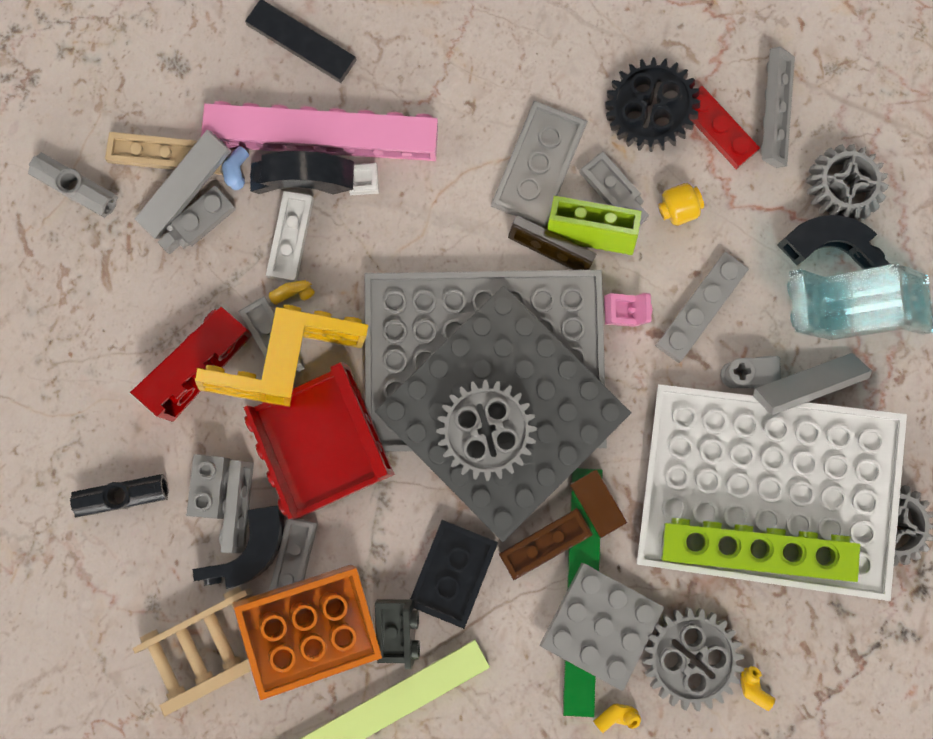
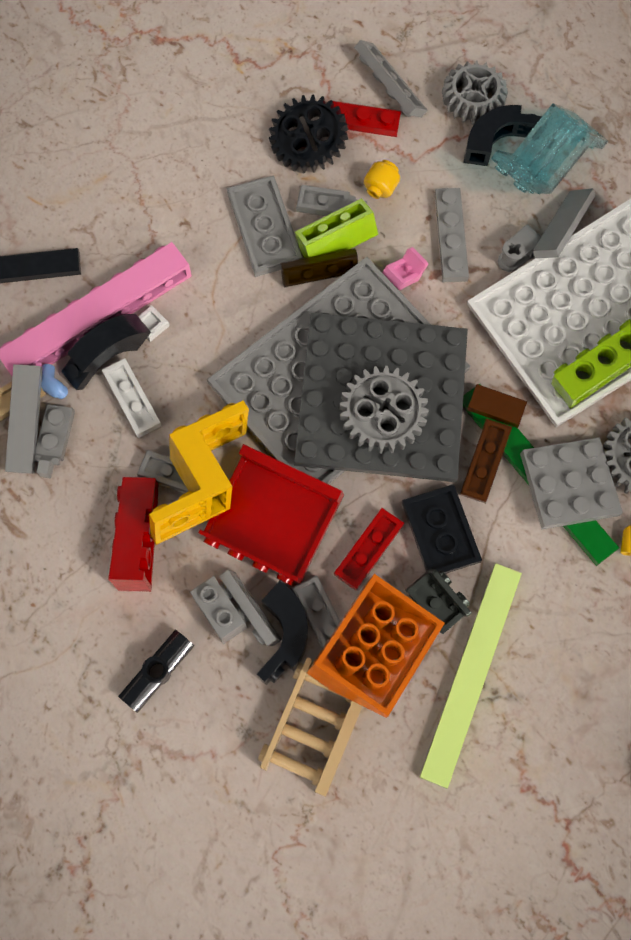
camera: 40 degrees left, 10 degrees down
(290, 289) = (161, 432): yellow arm -> none
(378, 537) = (368, 549): none -> red plate

